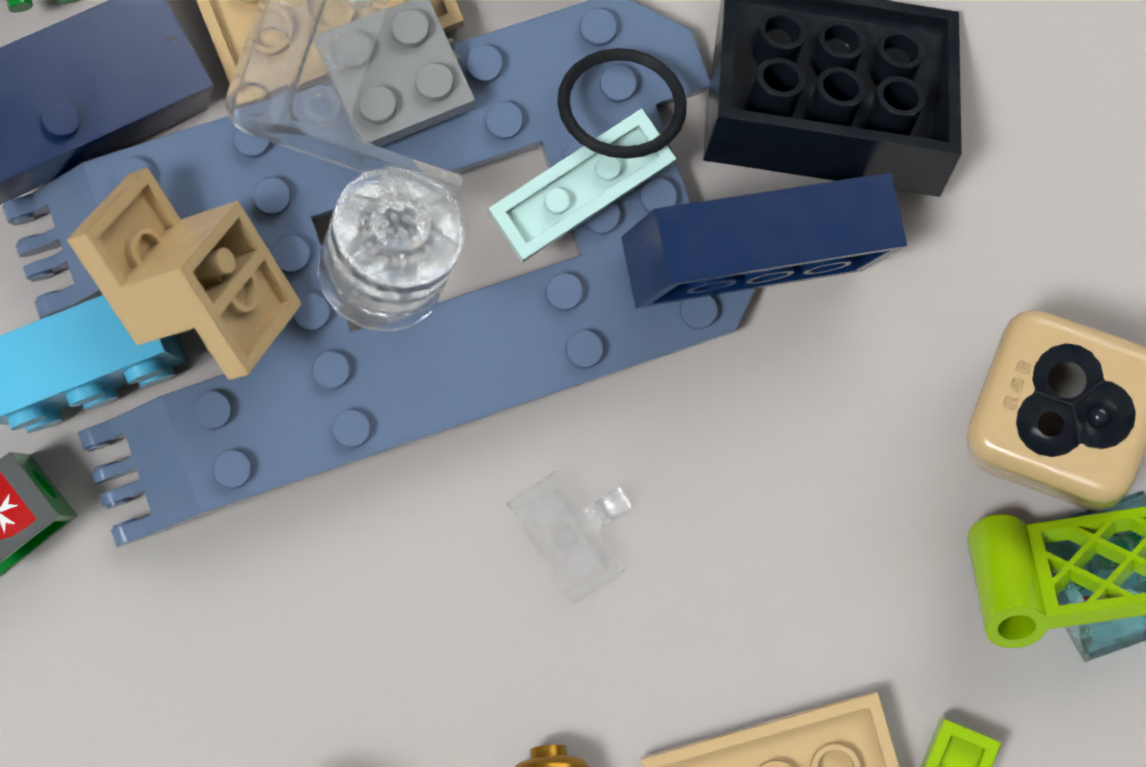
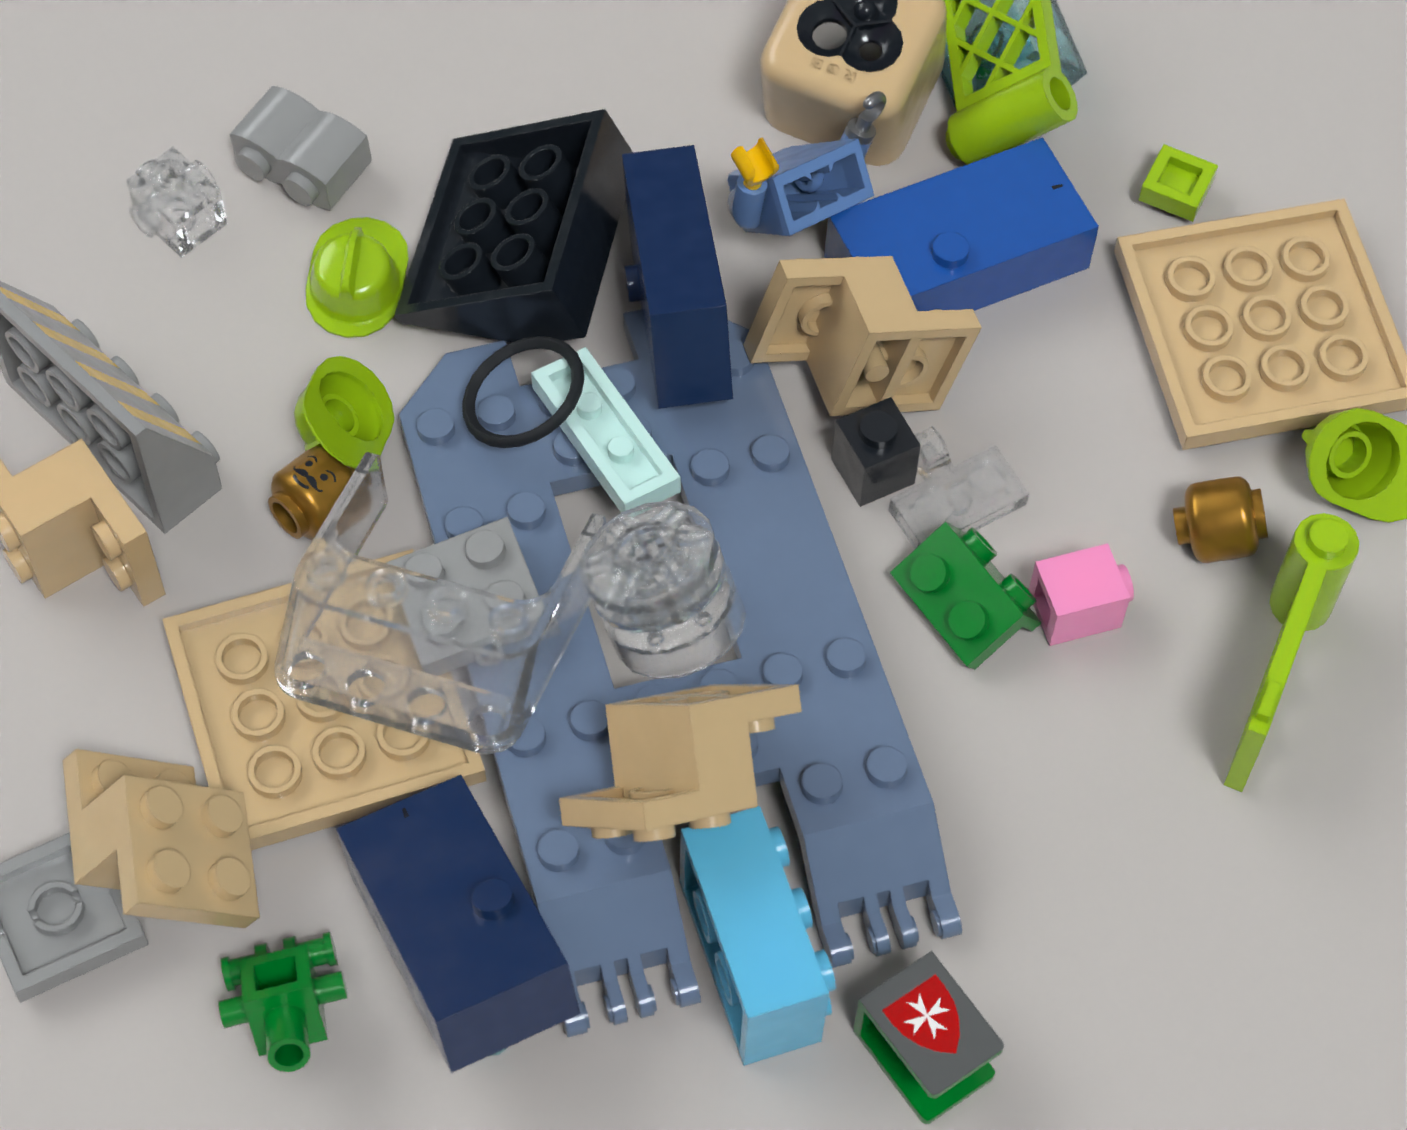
camera: 90 degrees left, 25 degrees down
(459, 546) = (965, 593): none -> green bracket
(461, 655) = (1080, 594): none -> bright pink brick
(601, 451) = (875, 451): none -> black brick
(712, 428) = (860, 334): none -> tan bracket
(860, 532) = (975, 230): none -> blue brick
(895, 361) = (803, 182): none -> medium blue torso

